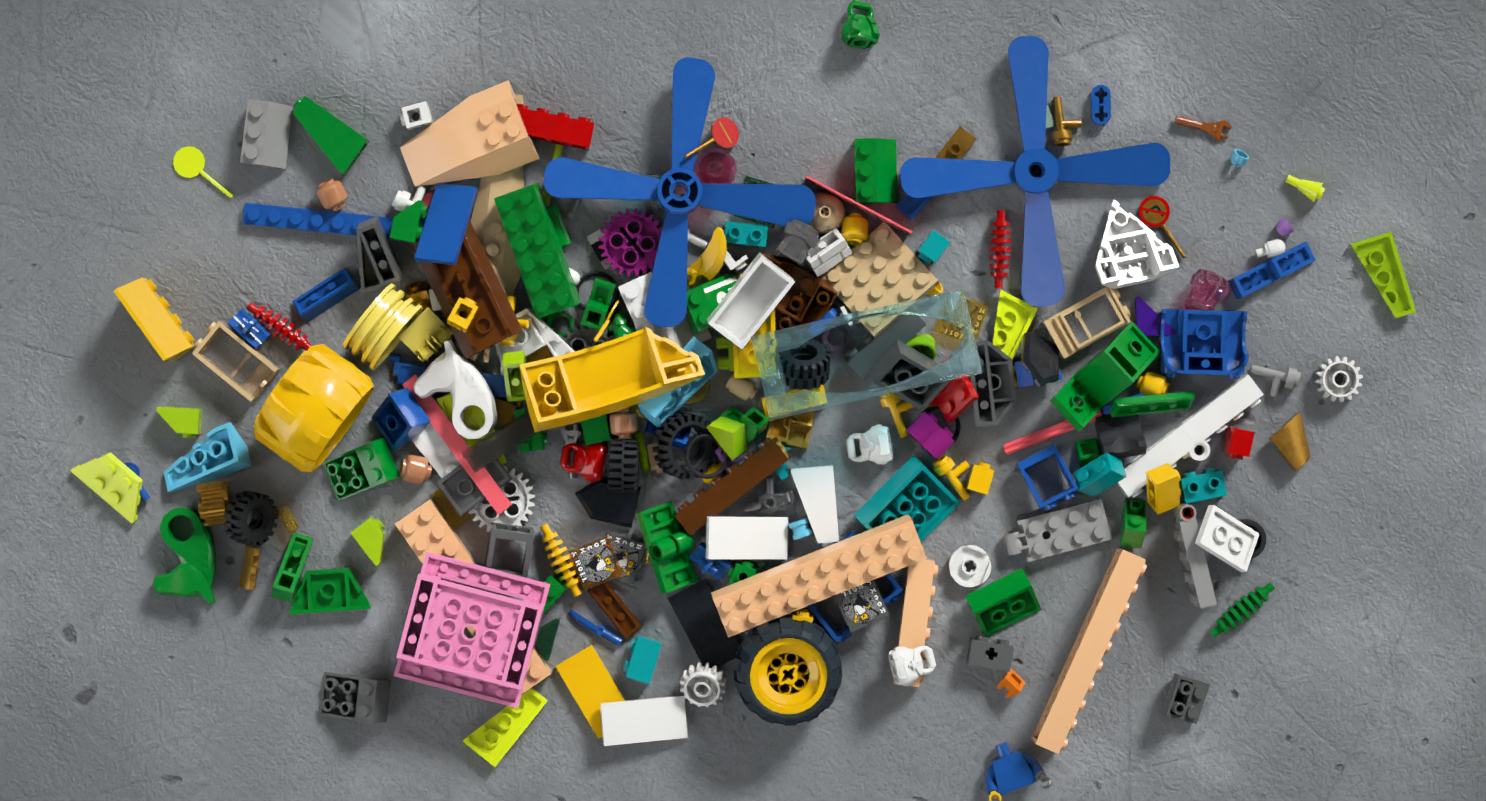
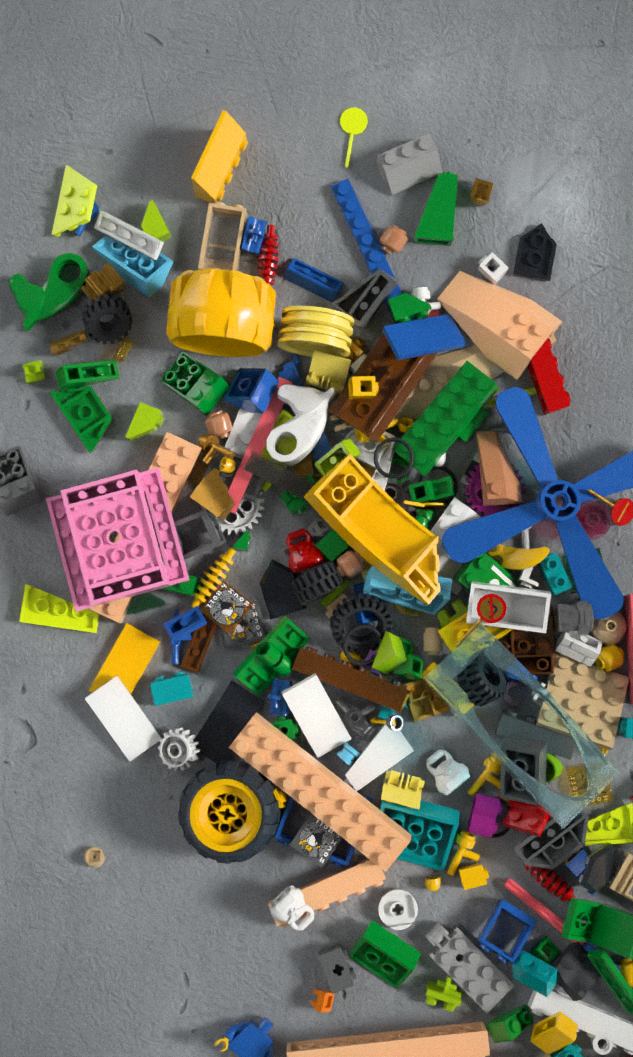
camera: 60 degrees right, 5 degrees down
(178, 449) = (128, 235): none -> white tile
(259, 617) = (34, 371): none -> lime tile
(334, 81) = (481, 192): none -> pearl gold plate
(427, 64) = (535, 255): none -> black tile
(432, 489) = (210, 445): none -> pearl gold piece
(461, 485) = (227, 465): none -> yellow hinge
(483, 514) = (214, 495): none -> pearl gold slope
(516, 291) = (403, 422): none -> yellow hinge
(531, 310) = (410, 463): none -> black tyre
(543, 511) = (243, 543): none -> green slope
(588, 611) = (182, 625): none -> blue slope
(620, 232) = (497, 475): none -> nougat wedge
(743, 320) = (490, 609): none -> piece
(795, 473) = (394, 725): none -> hinge
(863, 499) = (402, 791): none -> light yellow hinge
(965, 519) = (432, 883): none -> yellow hinge
(1025, 408) = (554, 883): none -> red piece
(1068, 567) = (443, 991): none -> lime hips

